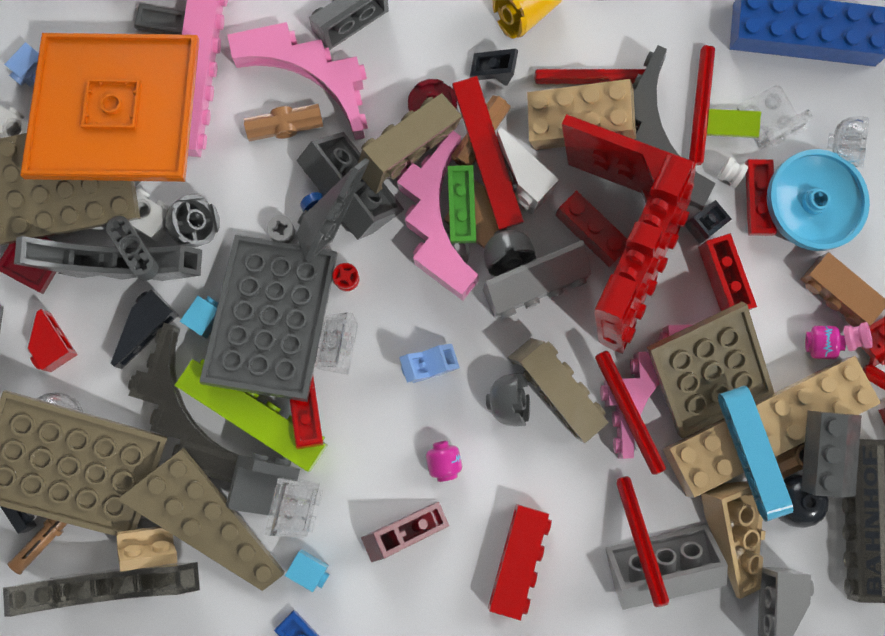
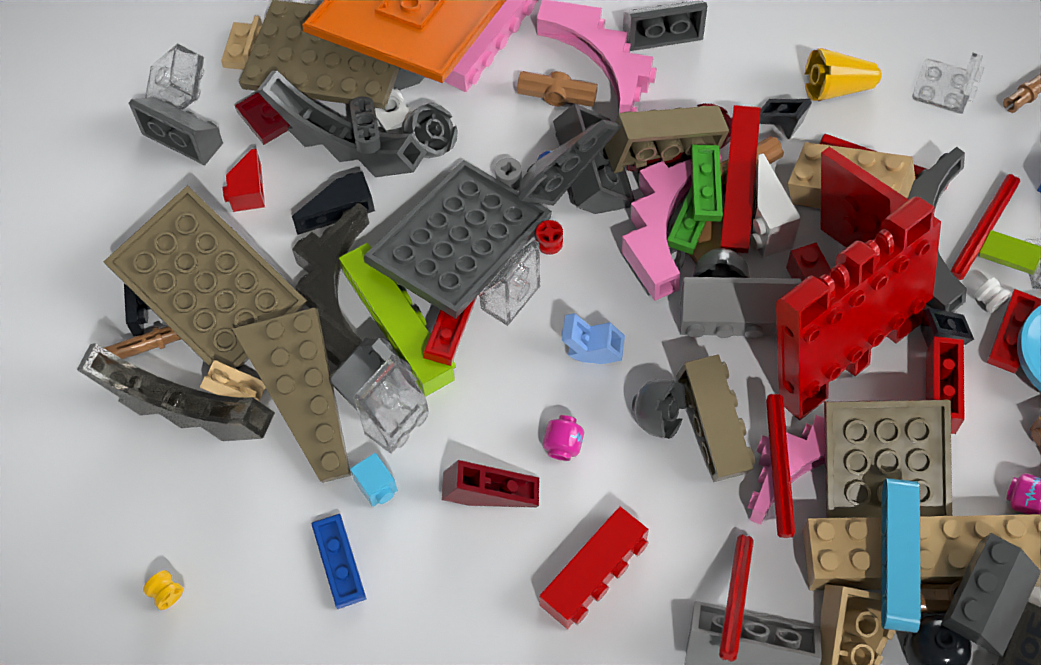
camera: 35 degrees right, 20 degrees down
(201, 316) = (392, 211): medium azure brick -> none
(461, 173) = (706, 183): none -> bright green plate

